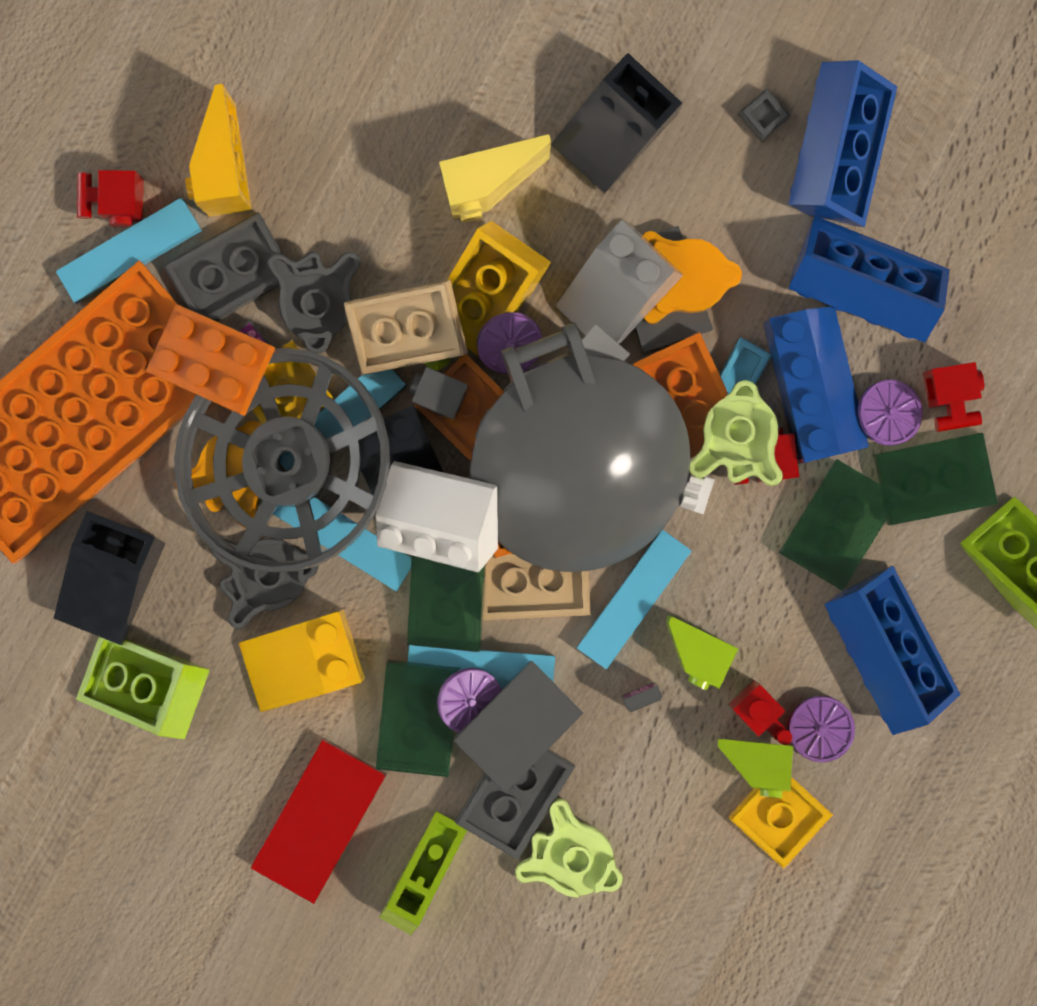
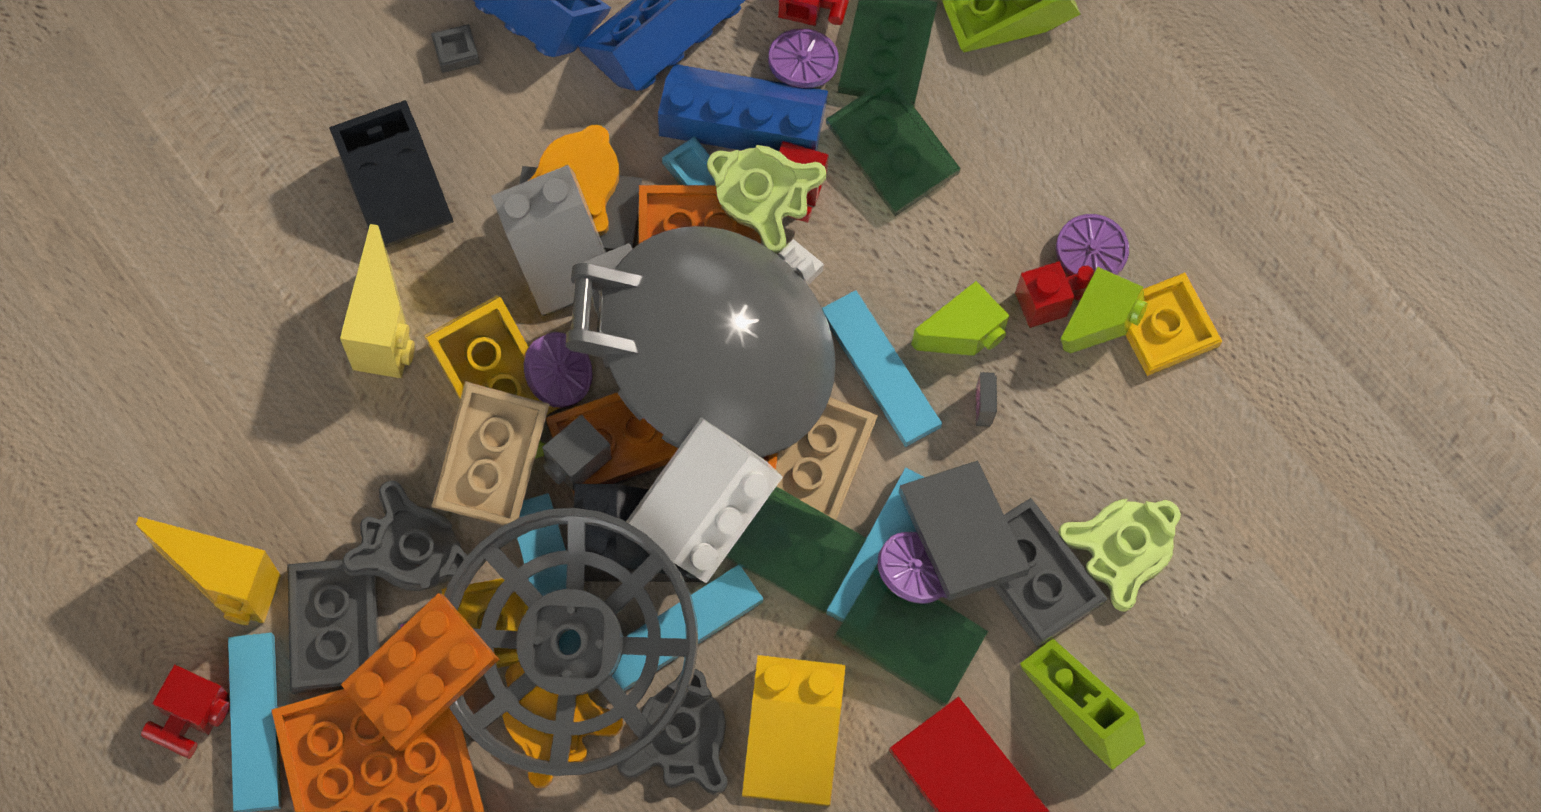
camera: 65 degrees left, 20 degrees down
(893, 651) = (1041, 150): blue slope -> none

